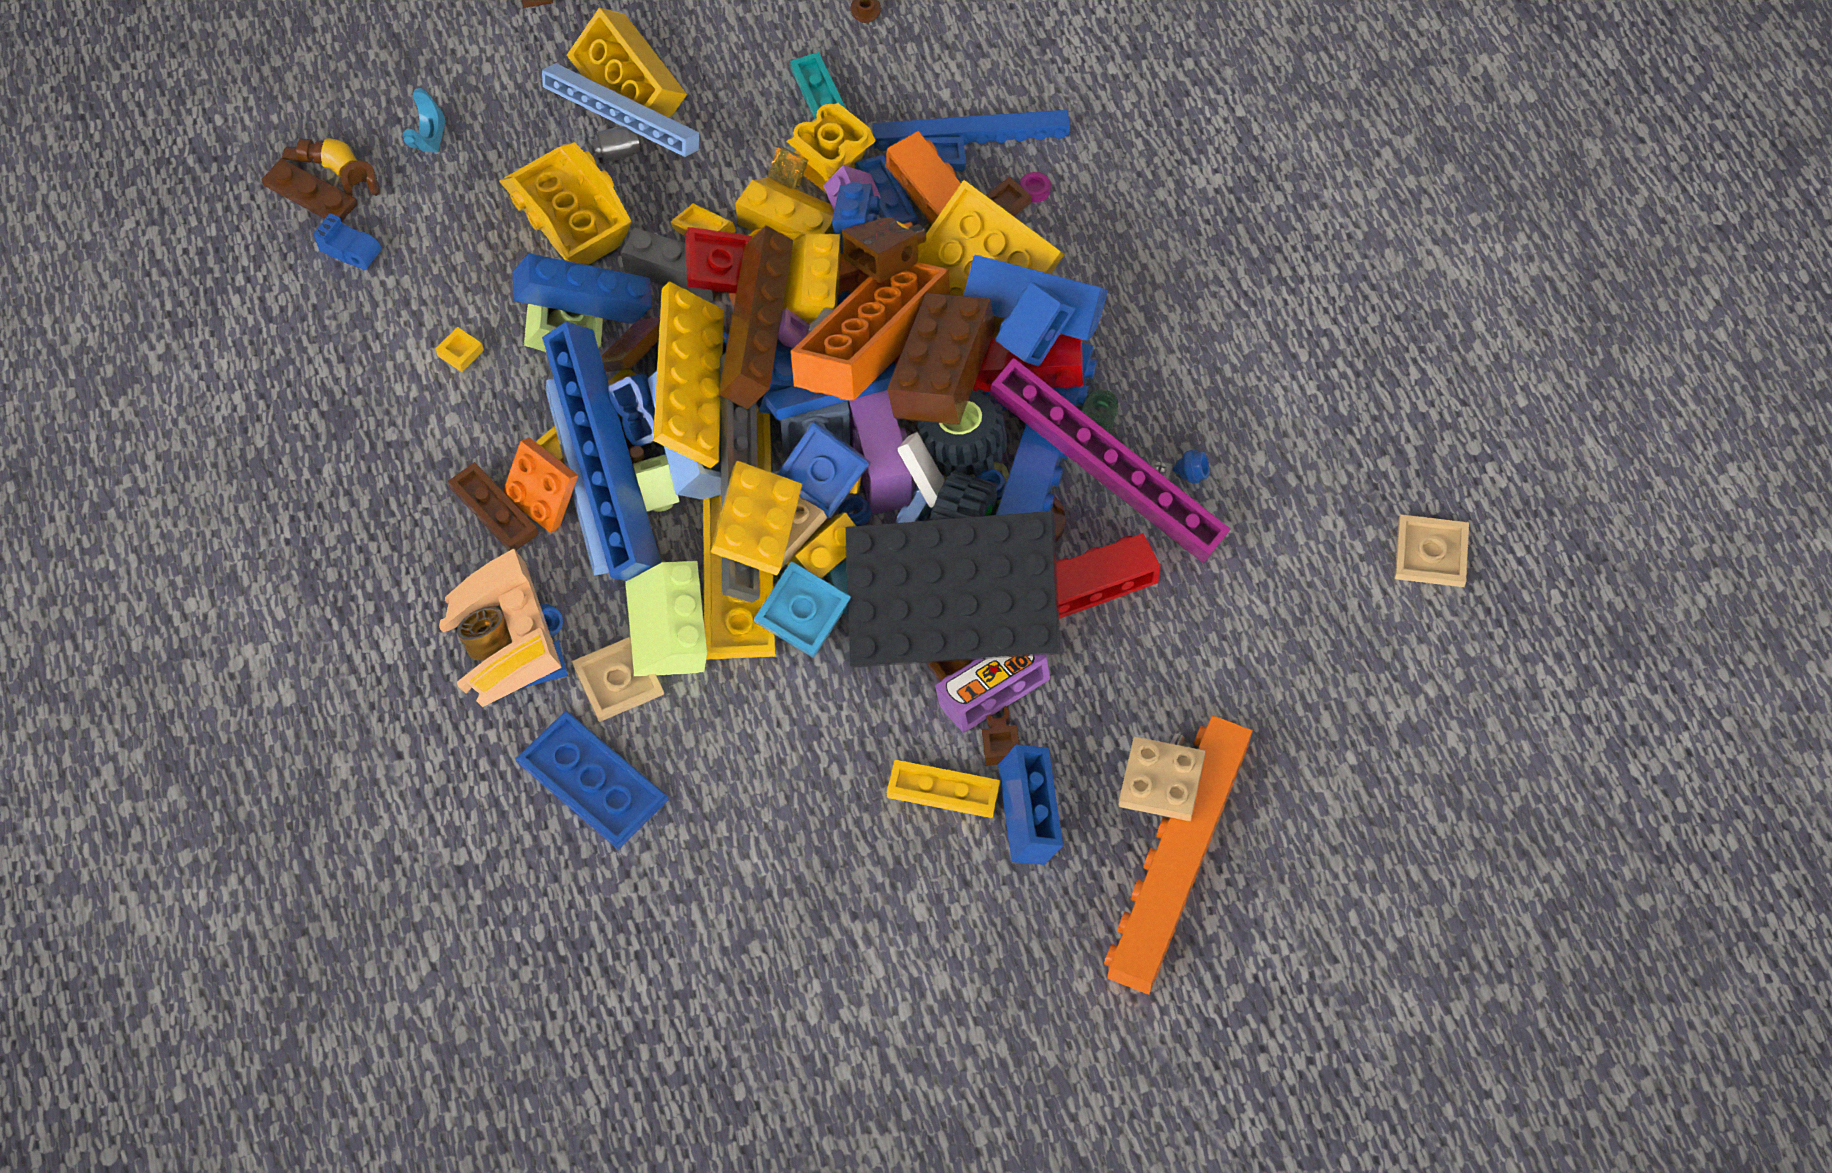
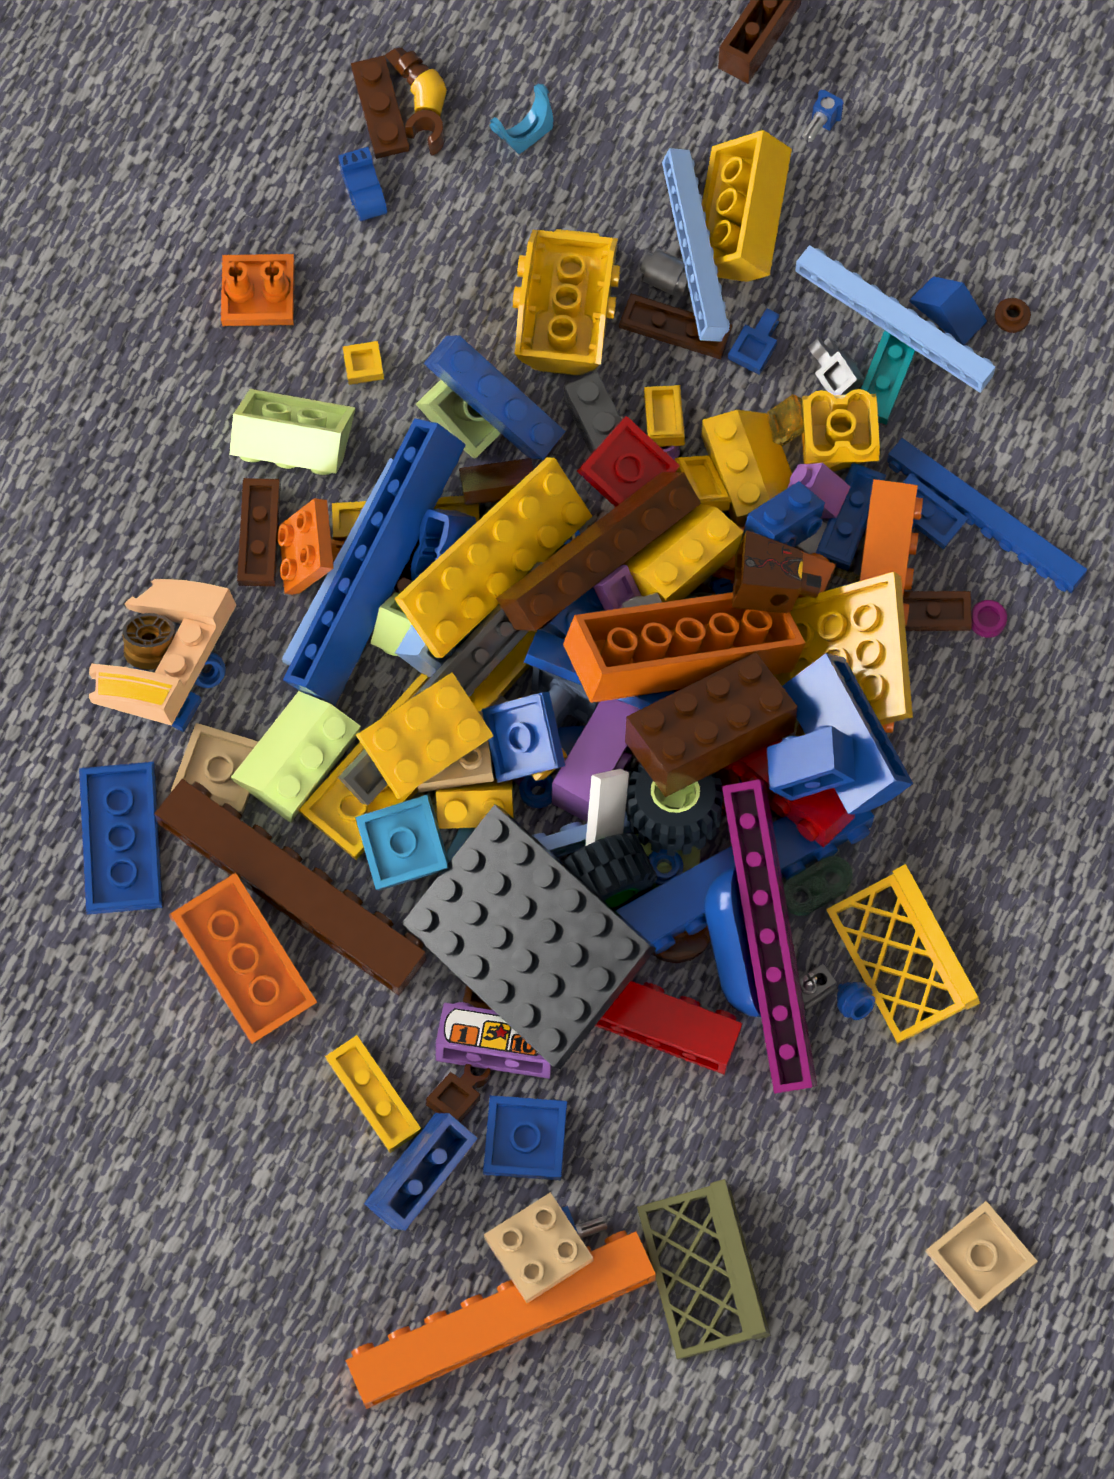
camera: 45 degrees right, 10 degrees up
(336, 361) = (257, 290): none -> orange plate
(453, 428) = (291, 431): none -> yellowish green slope
(654, 173) = (668, 325): none -> reddish brown tile
(718, 142) = (755, 345): none -> blue plate
(749, 705) = (290, 886): none -> reddish brown brick
(764, 775) = (243, 958): none -> orange plate
(785, 117) = (838, 370): none -> plate
(796, 57) = (895, 318): none -> light blue piece
(821, 31) = (950, 307): none -> blue slope
(1074, 728) = (525, 1138): none -> blue plate
(1087, 490) = (730, 943): none -> blue brick
(1202, 389) = (931, 937): none -> yellow fence
(1296, 686) = (736, 1261): none -> olive fence

